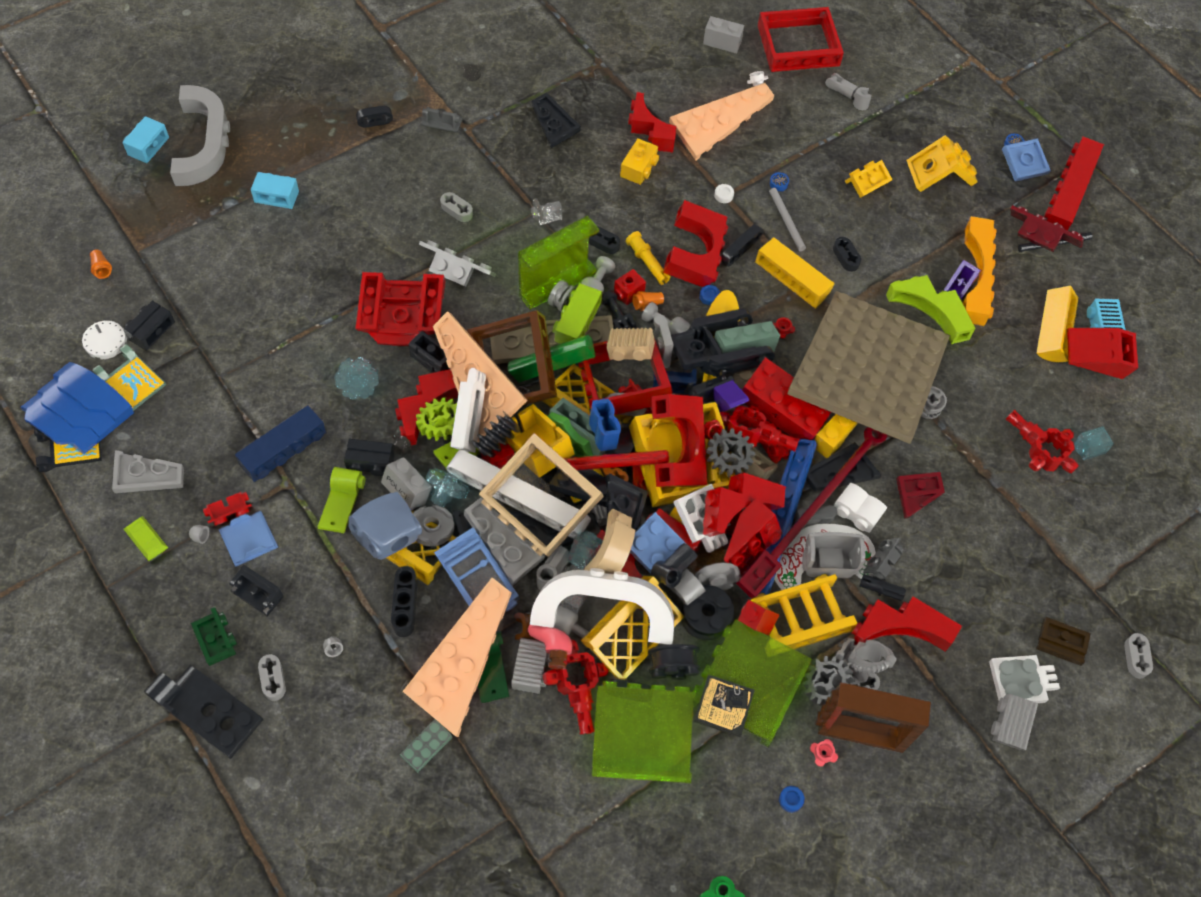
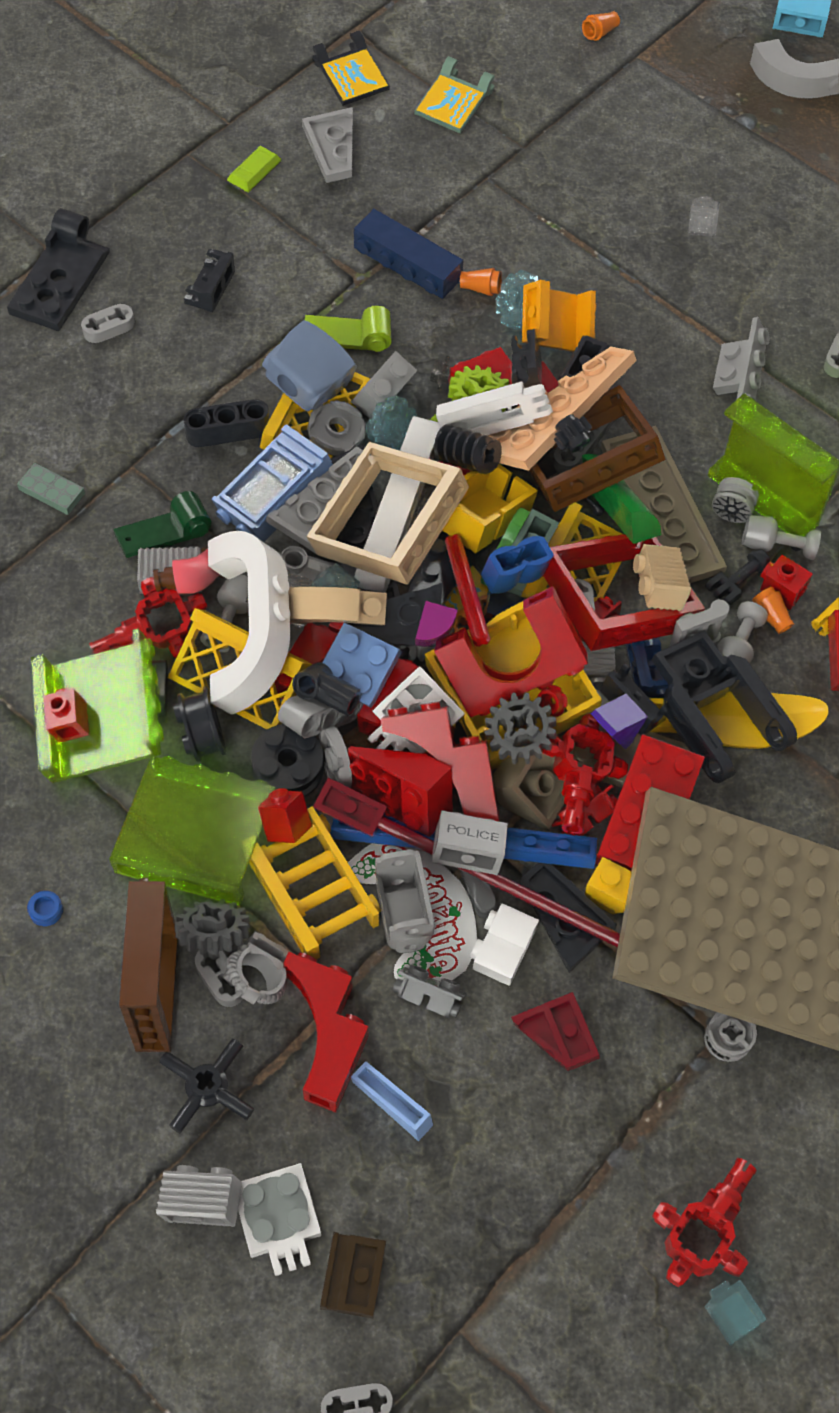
camera: 80 degrees right, 0 degrees up
(76, 408) = (393, 59): blue slope -> none
(104, 339) = (500, 59): white tile -> none
(148, 325) = (530, 90): black brick -> none
(199, 533) = (269, 212): light grey hinge -> none
(213, 637) = (143, 257): dark green bracket -> none
(219, 512) = (313, 233): red hinge -> none
(247, 538) = (279, 259): medium blue piece -> none
(275, 190) = (781, 154): medium azure brick -> none
(314, 249) = (703, 216): none -> clear bracket
(324, 400) = (482, 281): none -> orange cone
(328, 649) = (155, 368): light grey hinge -> none
(368, 456) = (415, 340): black brick -> none
(386, 354) = (557, 316): none -> light orange panel
(398, 309) = (648, 316): red slope -> none
(428, 383) = (526, 361): none -> black hinge
(455, 667) = (154, 488): light nougat wing -> none
(511, 363) = (572, 433): none -> black gear
(578, 314) = (703, 518): lime brick -> none
(646, 756) = (66, 715): none -> red brick
(647, 483) = (434, 623): none -> magenta brick
(708, 294) = (820, 689): blue tile -> none
(724, 706) = (146, 790): tile -> none
(747, 336) = (744, 742): sand green brick -> none
(784, 323) = (799, 794): red plate -> none
(800, 504) = (469, 842): none -> light grey brick
(826, 746) = (106, 937): coral plate -> none
(882, 587) = (381, 991): black axle -> none
(943, 702) = (206, 1097): none -> black bar
(956, 594) = (393, 1100): none -> light blue piece

